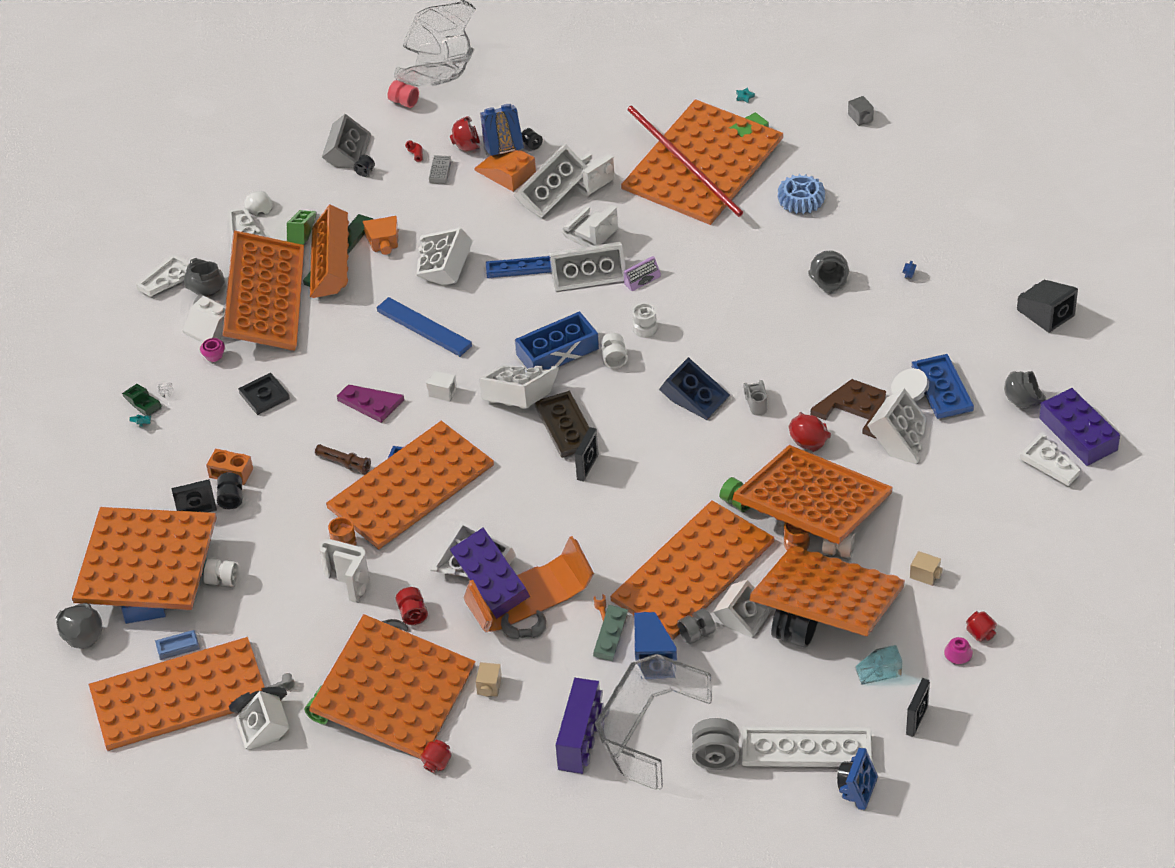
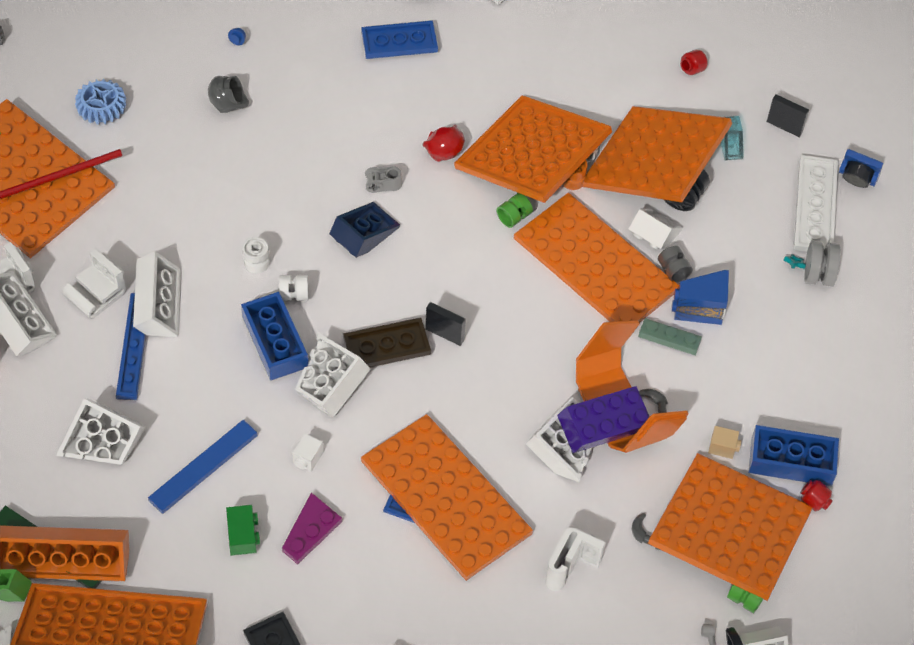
camera: 90 degrees left, 10 degrees up
(342, 530) = (518, 562): orange wheel -> none
(350, 460) = (402, 551): reddish brown pin -> none
(359, 353) = (241, 530): none -> green brick
(382, 234) = (40, 495): orange torso -> none
(411, 606) = (624, 502): red wheel -> none
(476, 732) = (793, 455): none -> blue brick
(578, 725) = (794, 367): dark purple brick -> none
(600, 605) = (630, 345): orange hand -> none
(629, 702) = (783, 327): clear piece -> none
(641, 274) = (180, 253): slope -> none
(855, 399) = (403, 101): reddish brown wing -> none
(899, 426) = (446, 77): white wedge -> none
(913, 381) = (397, 60): white tile -> none
(925, 568) = (622, 88): tan brick -> none
(958, 651) = (716, 84): dark pink cone -> none

